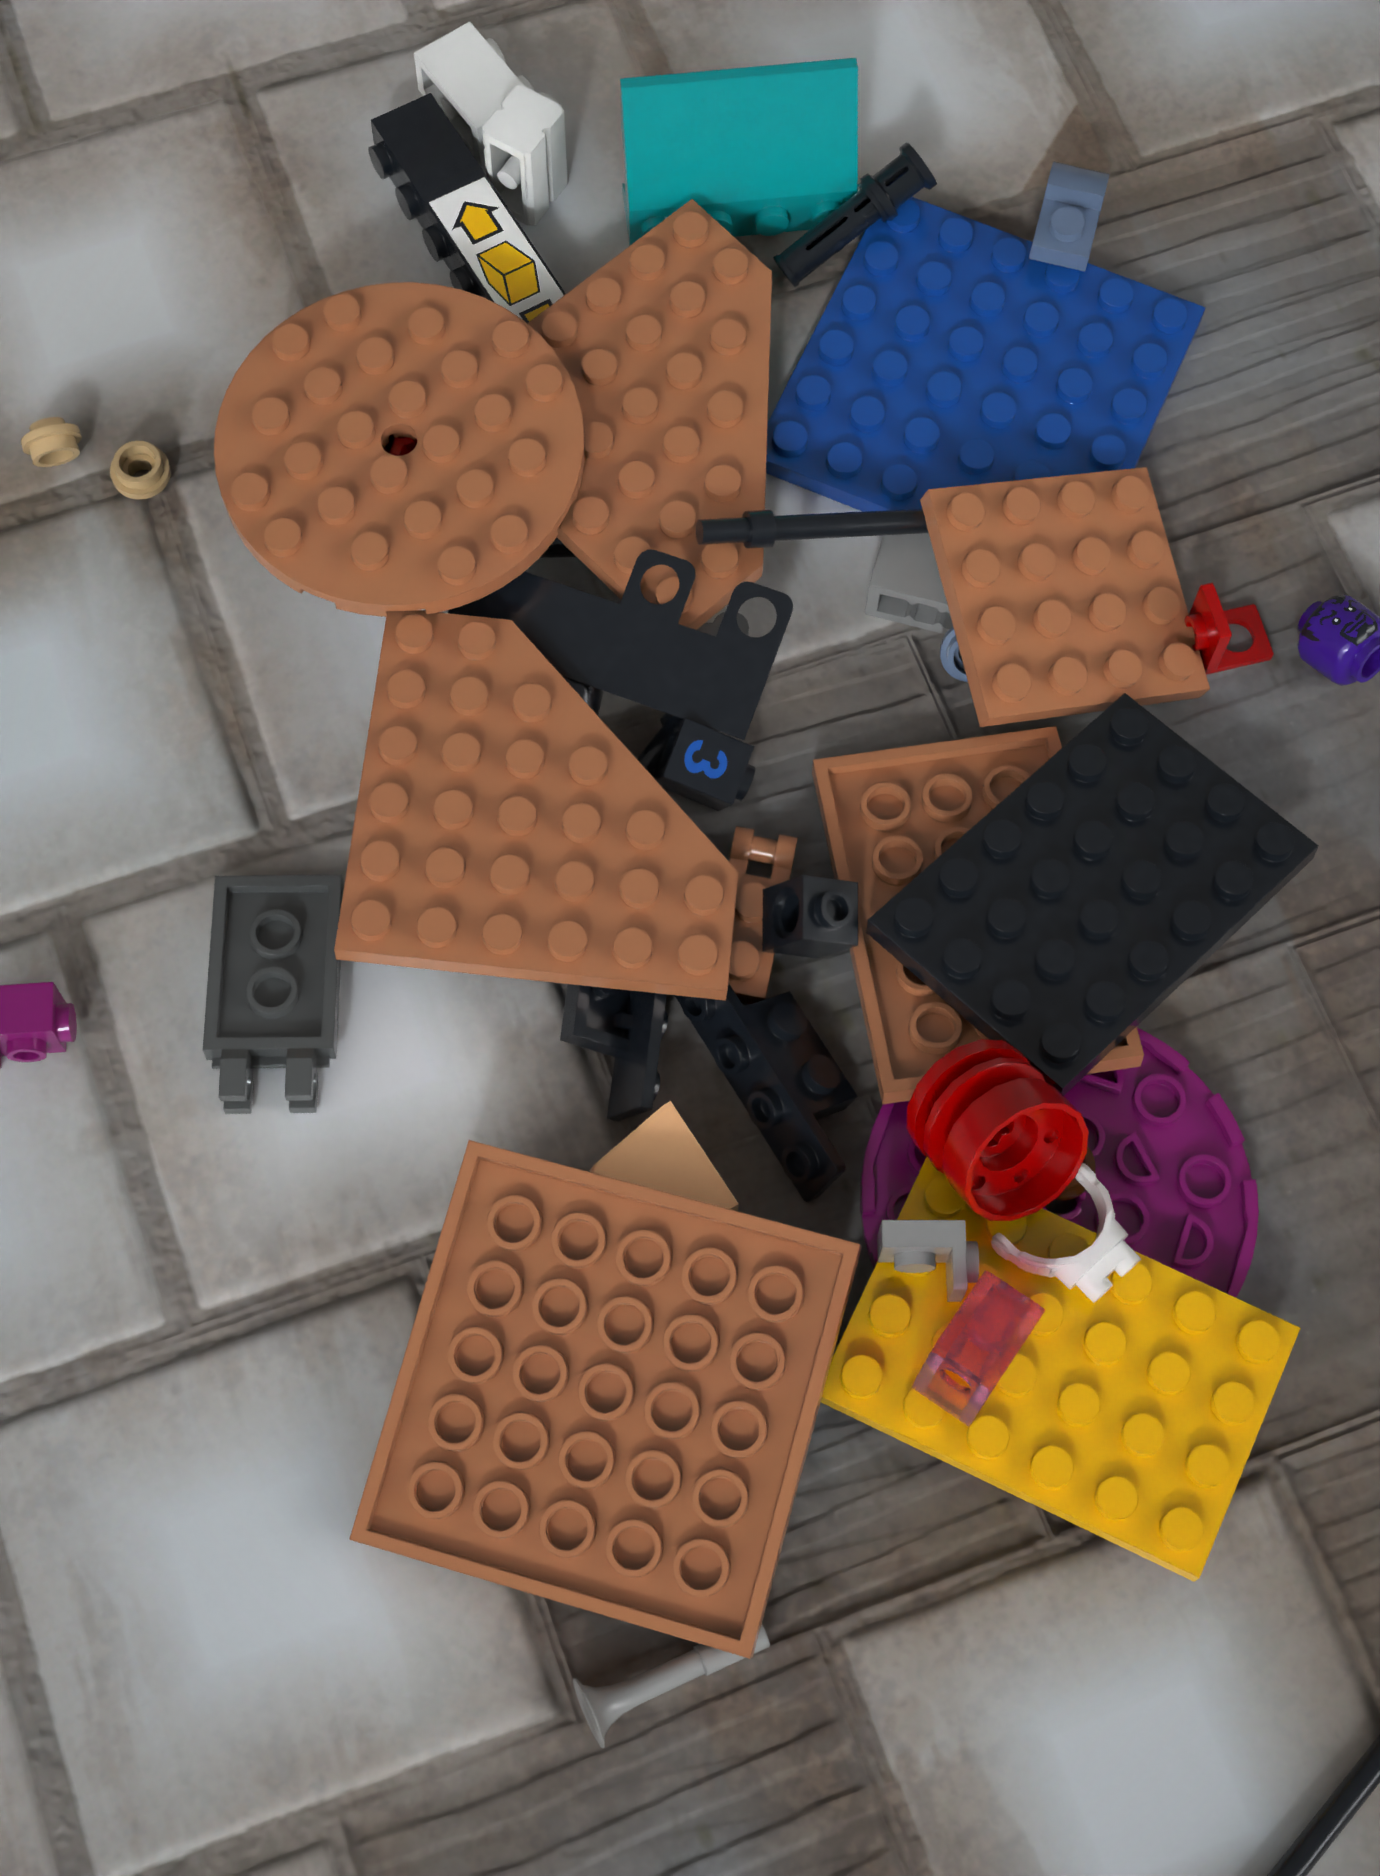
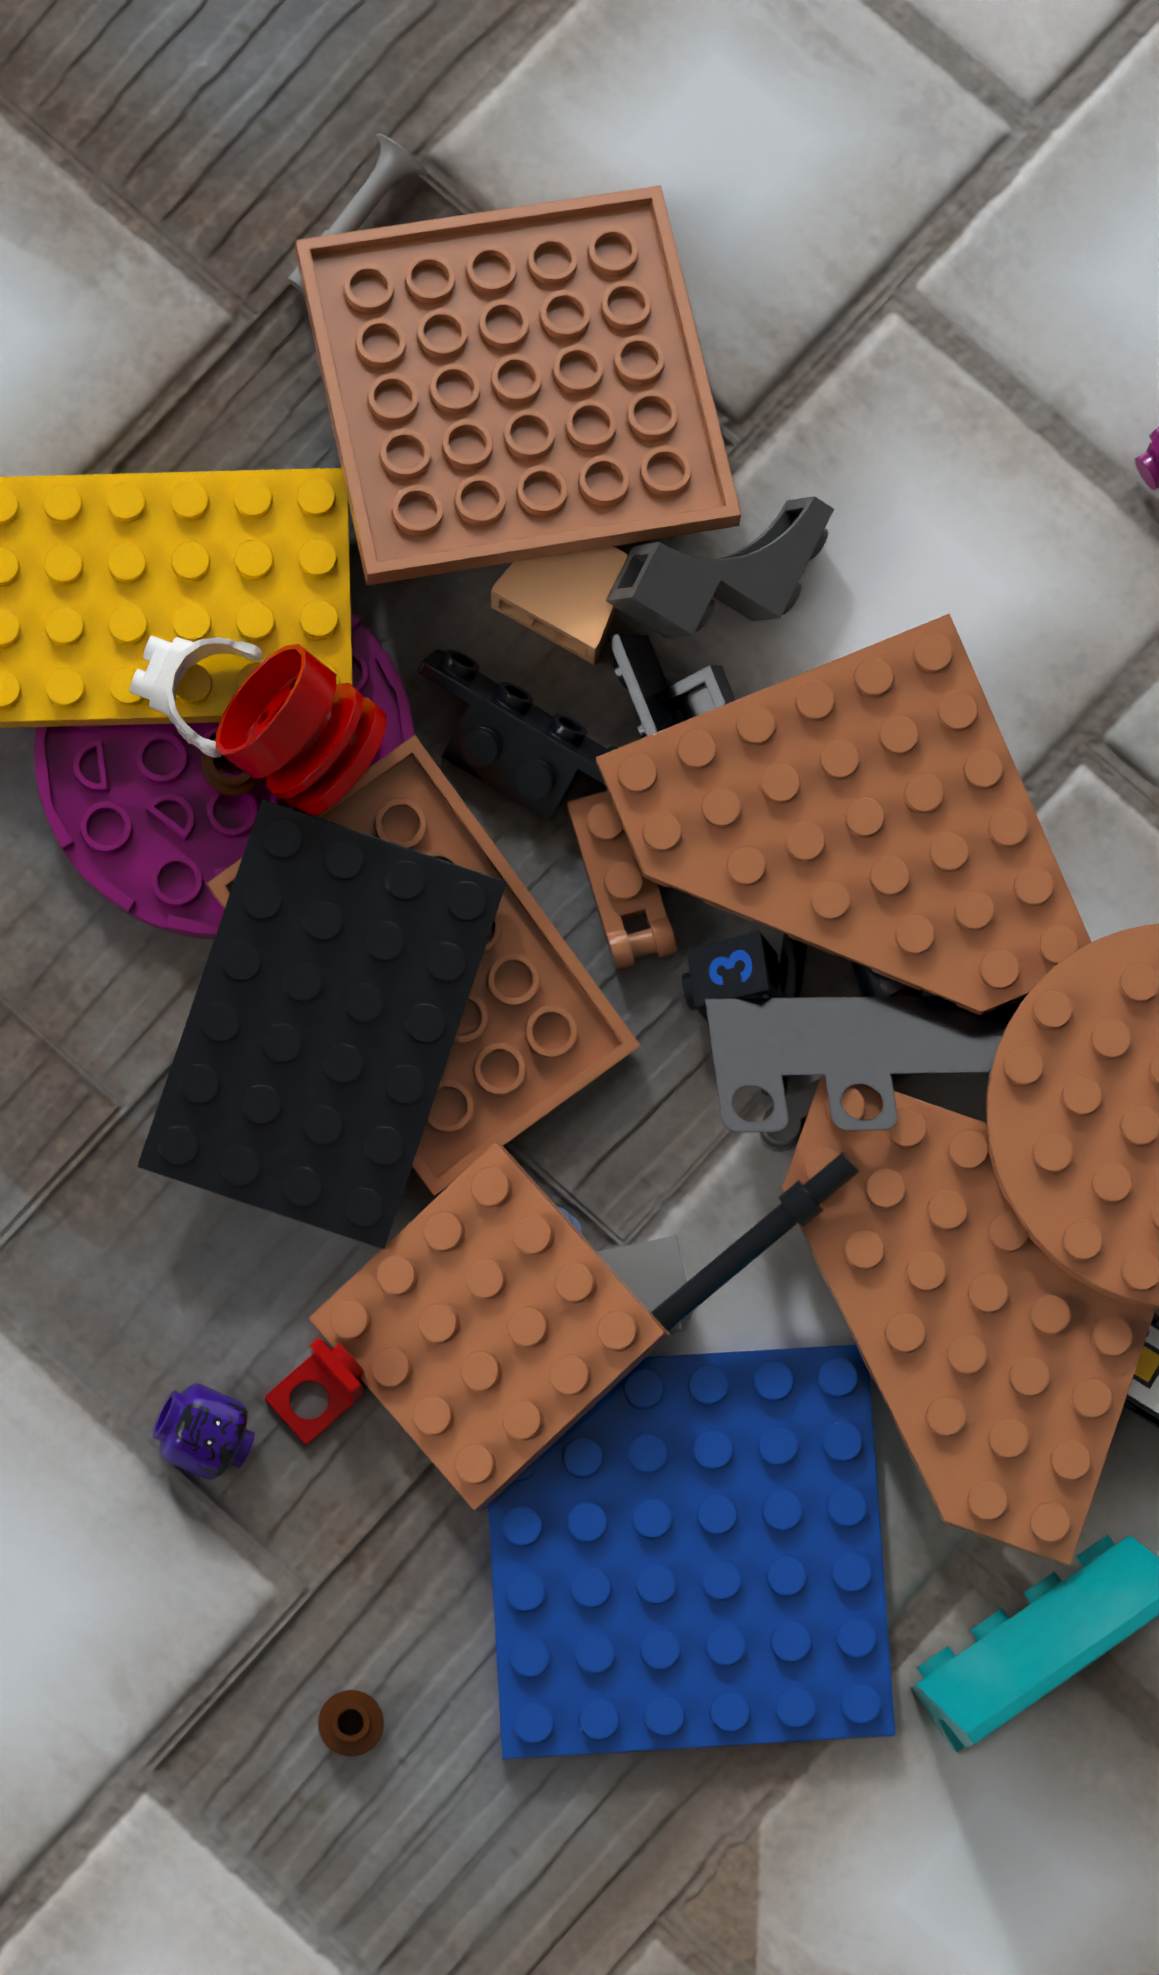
camera: 150 degrees right, 10 degrees up
(273, 984) = (1002, 599): dark grey tile -> none
(562, 1113) = (760, 581): none -> dark grey arch
(810, 916) = (561, 875): black brick -> none
(875, 200) = (892, 1682): black pin -> none
(920, 1244) = (317, 610): light grey bracket -> none
(978, 1347) = (230, 547): clear pink torso -> none
(1069, 216) = (688, 1775): sand blue brick -> none
(1311, 400) = (358, 1743): none -> reddish brown plate

